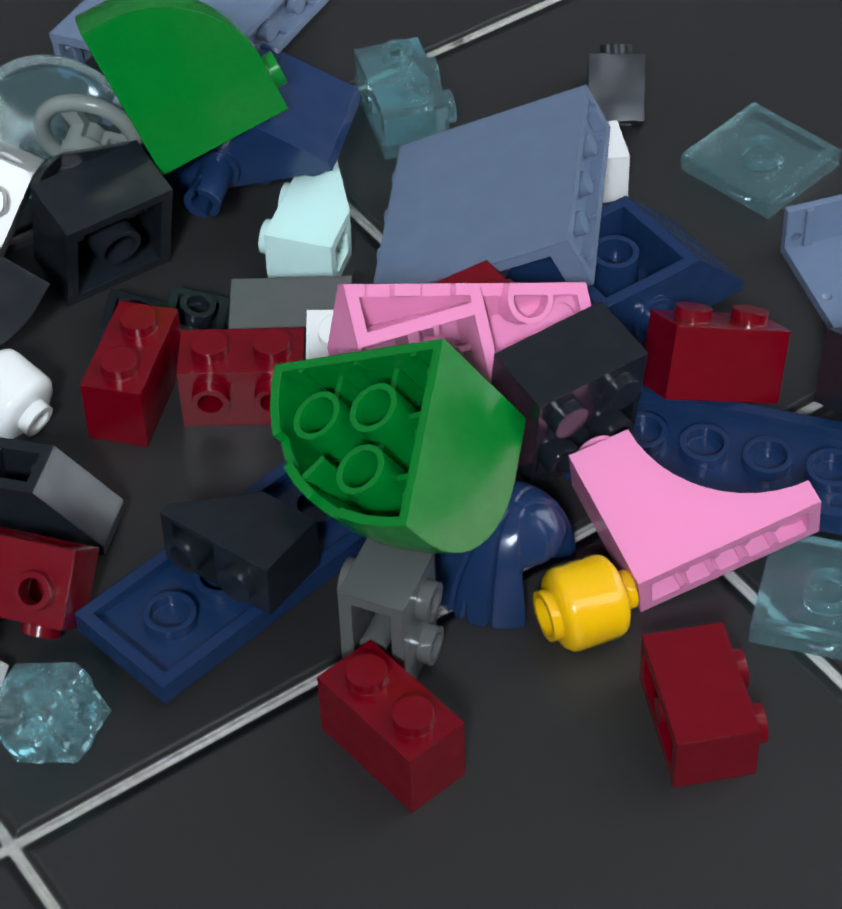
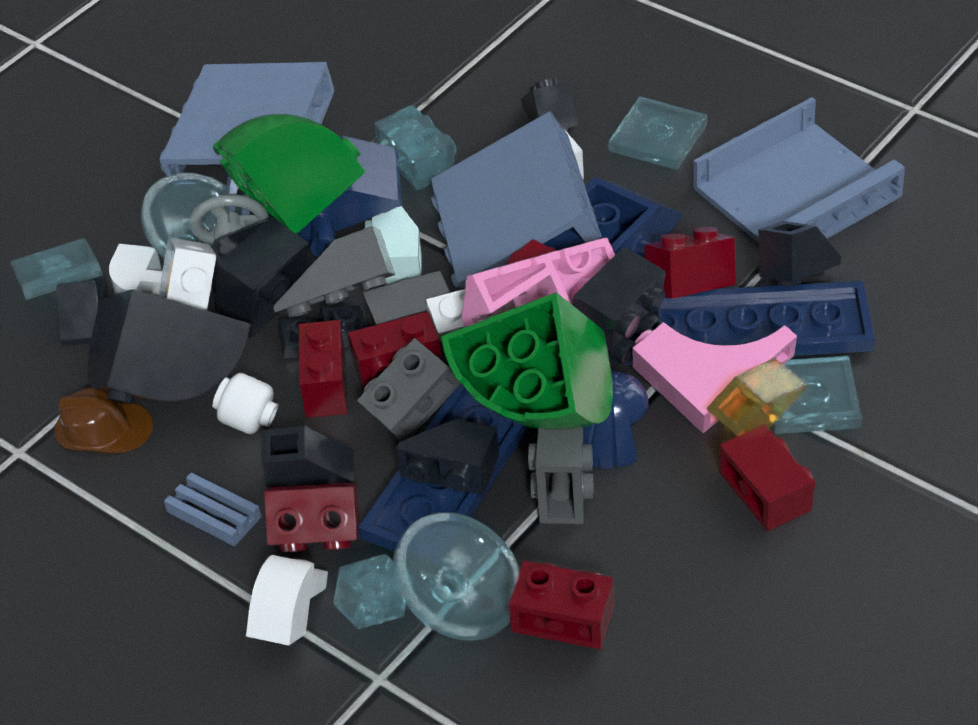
camera: 15 degrees left, 0 degrees up
(199, 700) = (469, 563): none -> clear light blue dish
(219, 235) = (343, 267): none -> dark grey slope
(222, 436) = (408, 390): none -> dark grey brick
(308, 811) = (562, 604): none -> dark red brick
(392, 725) = (588, 538): dark red brick -> none
(585, 603) = (672, 436): yellow head -> none
(727, 579) = (756, 397): none -> clear yellow slope

